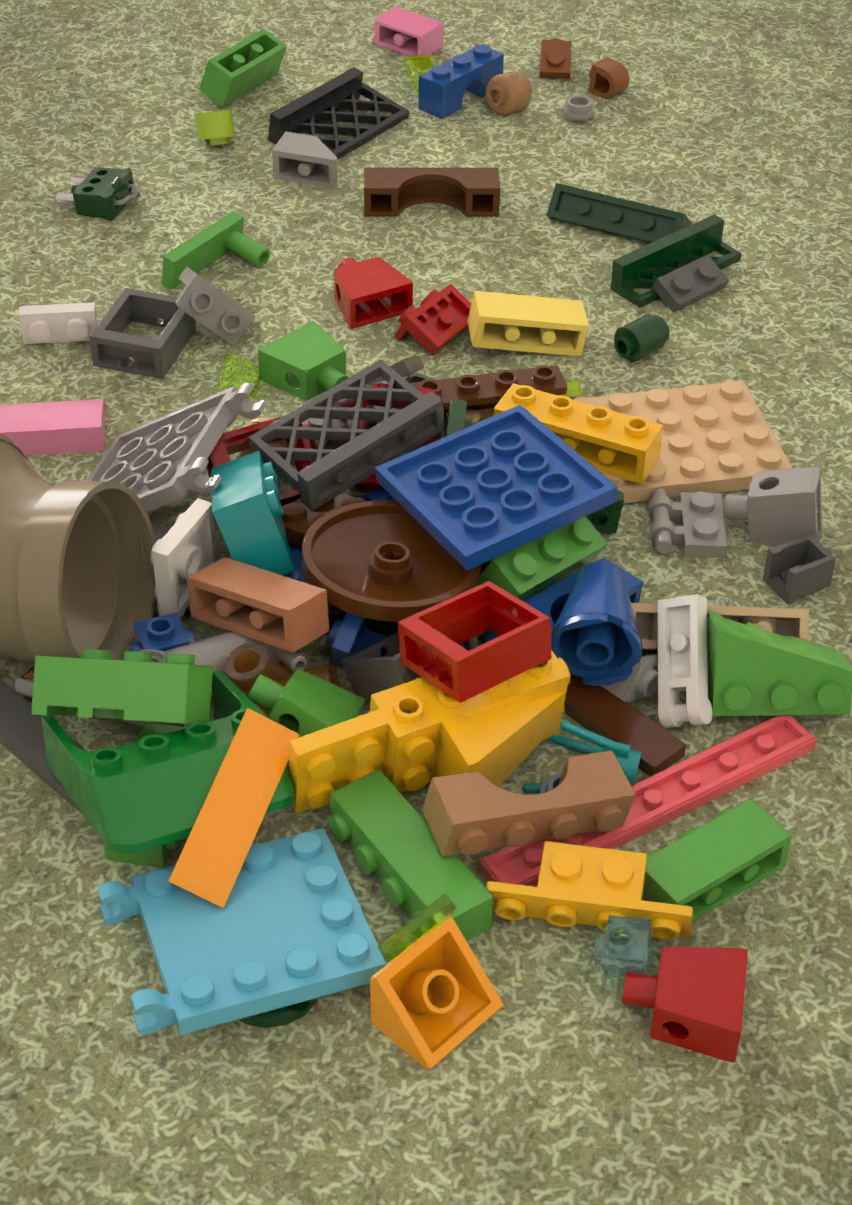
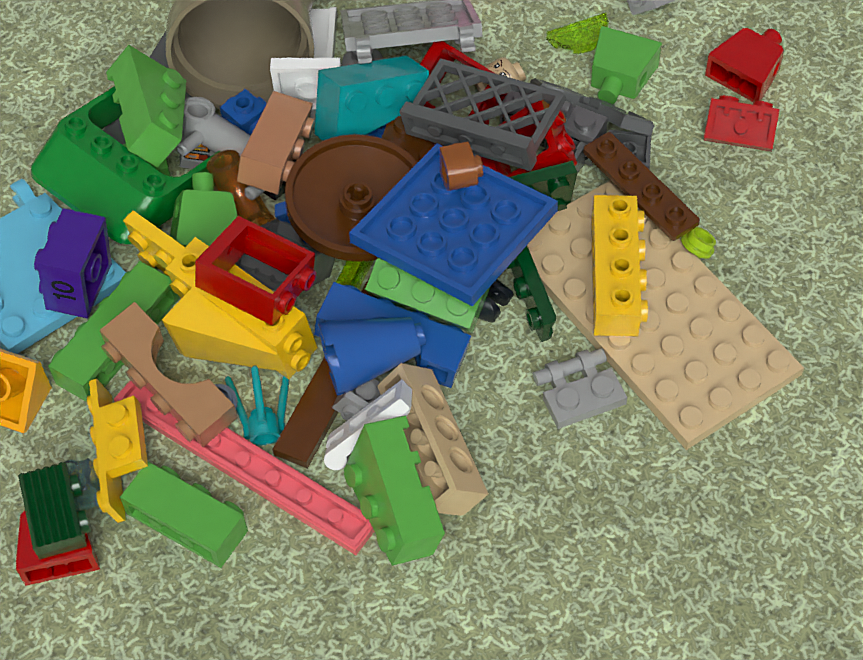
camera: 70 degrees right, 15 degrees up
(233, 809) = (111, 202): light orange sticker -> none
(321, 831) = (73, 262): none -> dark purple brick
(416, 927) = (33, 351): clear neon green tile -> none
(441, 445) = (459, 166): none -> dark orange plate
(527, 323) = (768, 182): light yellow brick -> none
(641, 337) = (813, 271): dark green brick -> none
(691, 951) = (53, 510): none -> dark green brick
(780, 506) = (613, 431): light grey torso -> none
(798, 568) = (562, 472): dark grey window -> none

